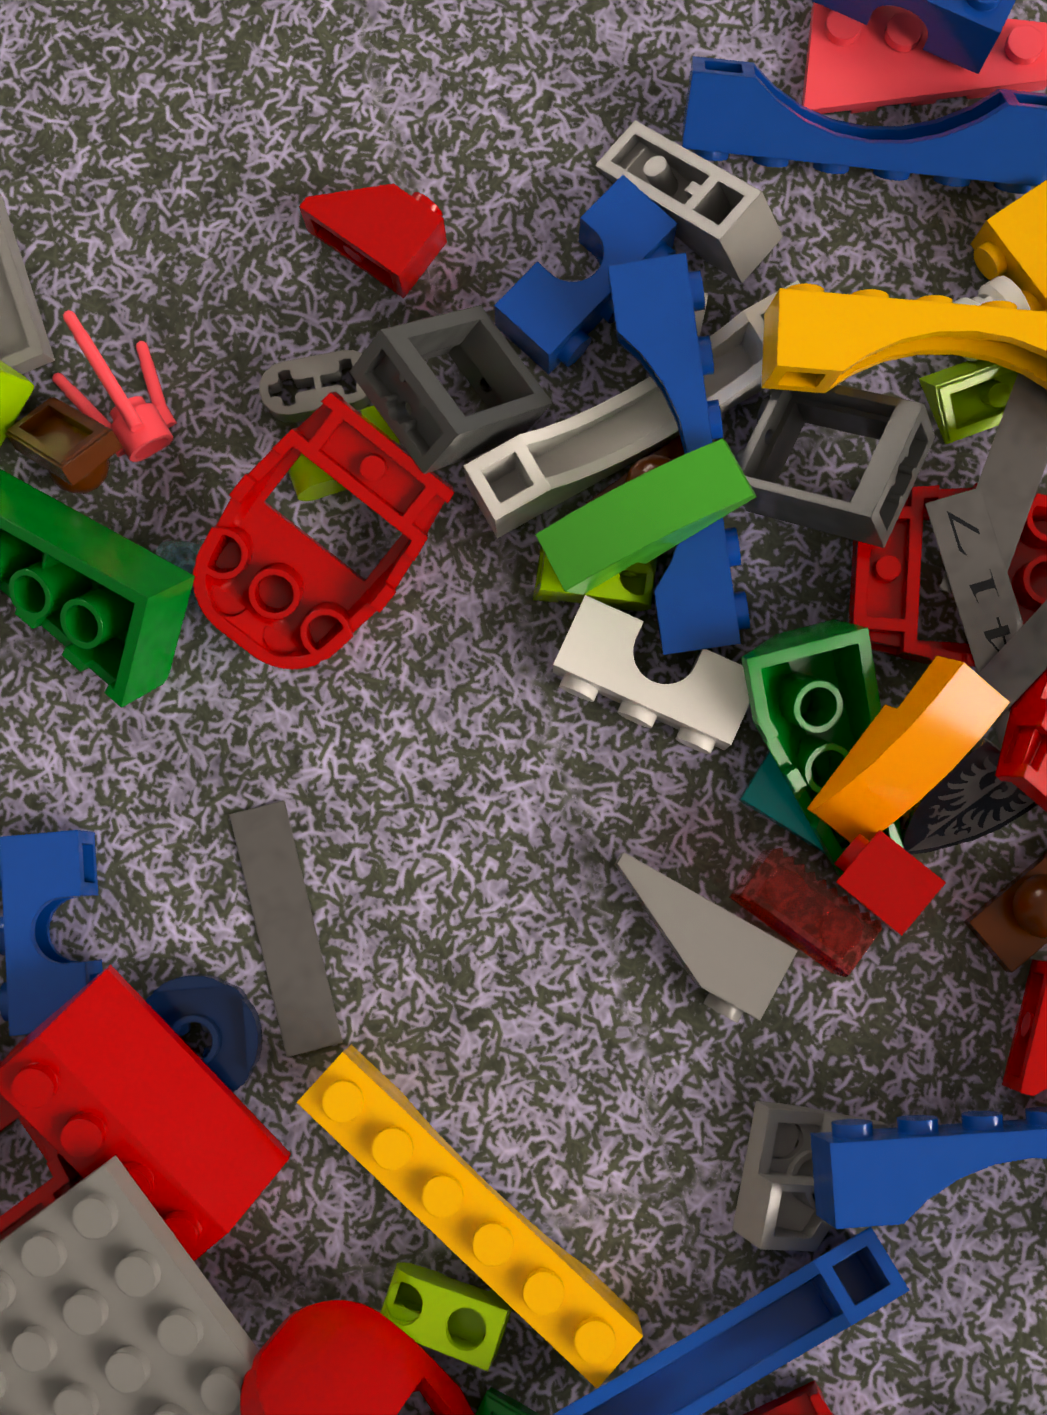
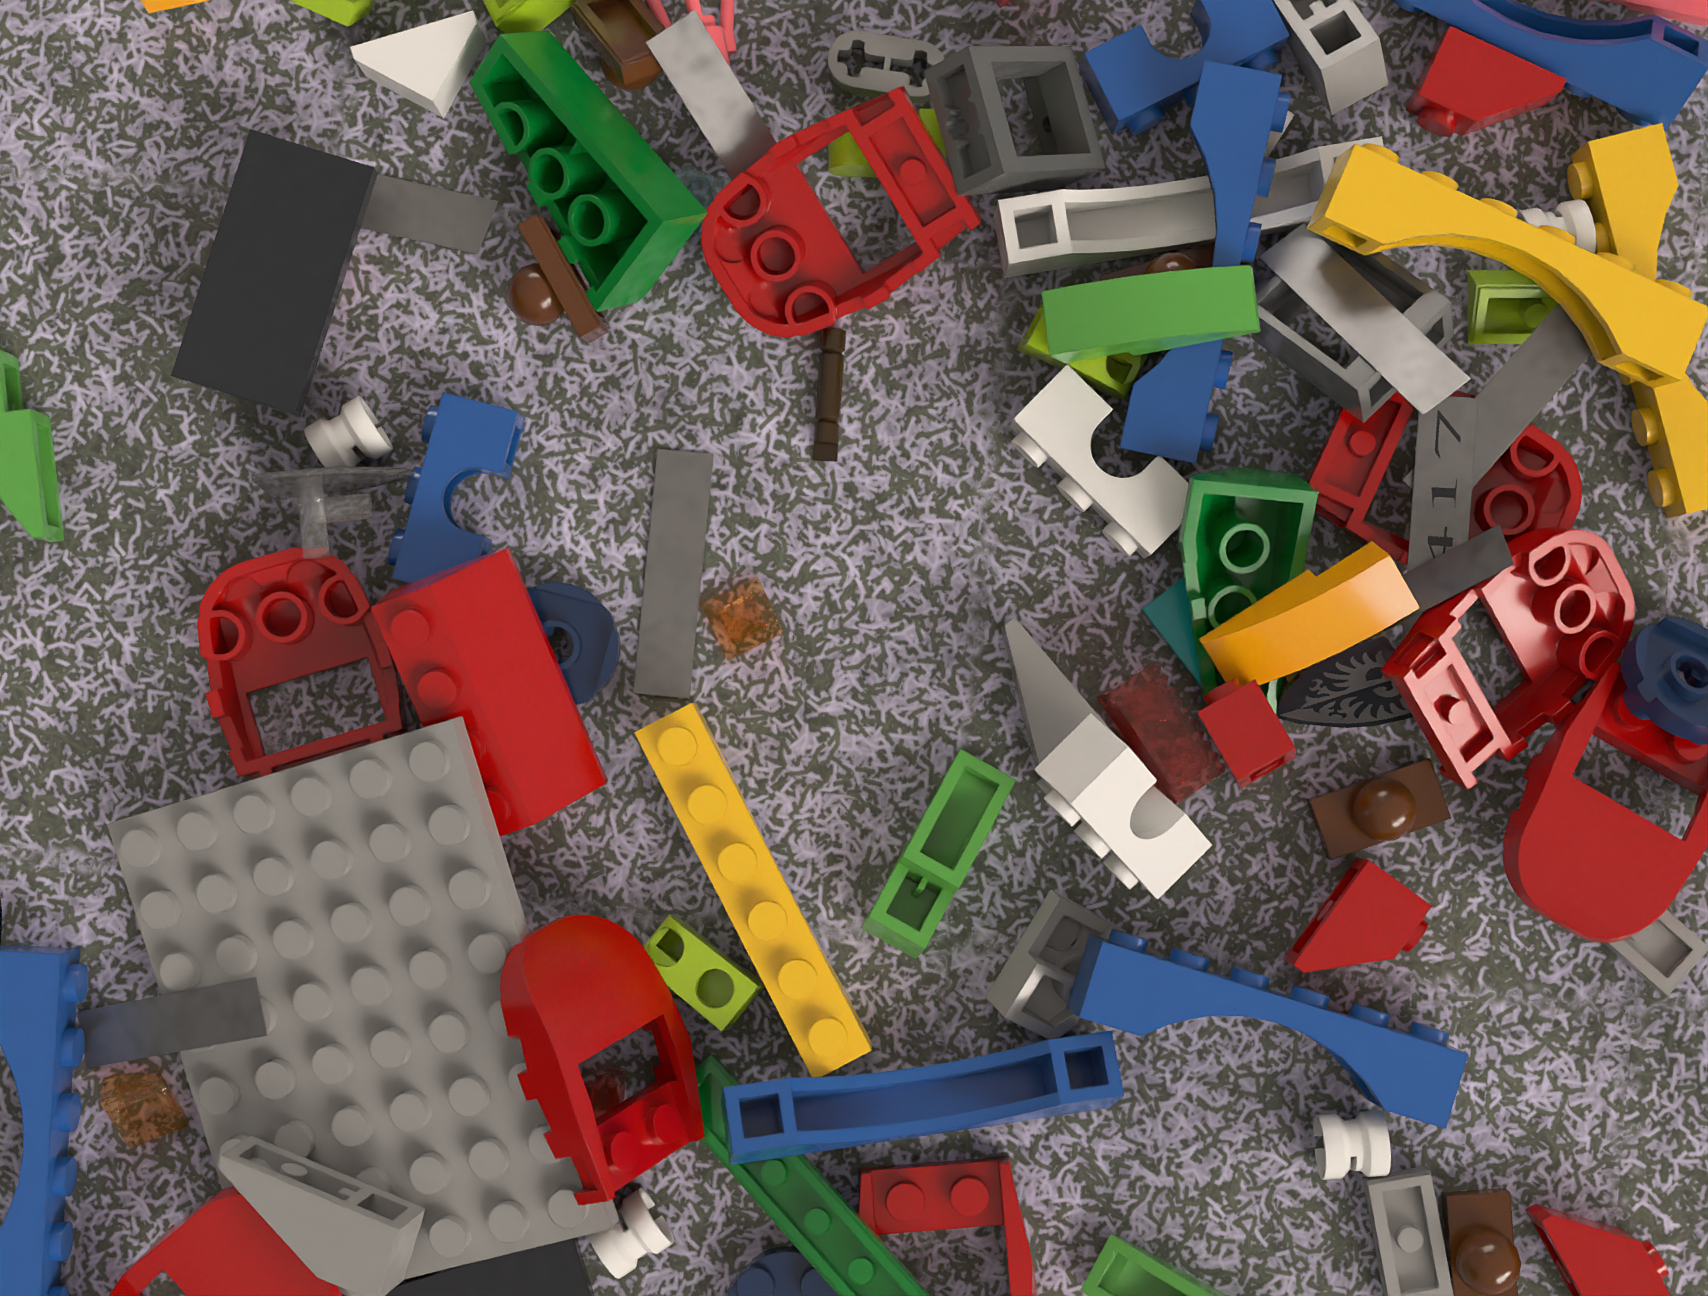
camera: 15 degrees right, 5 degrees up
(74, 698) = (548, 288): none -> reddish brown tile
(158, 463) = (712, 93): none -> flat silver sticker
(366, 946) = (743, 618): none -> clear orange slope
(373, 705) = (829, 395): none -> dark brown wheel
(636, 1108) = (938, 854): none -> bright green slope
(795, 1003) = (1120, 809): none -> white arch
(852, 450) = (1365, 319): none -> flat silver sticker
(863, 209) = (1476, 86): none -> red slope

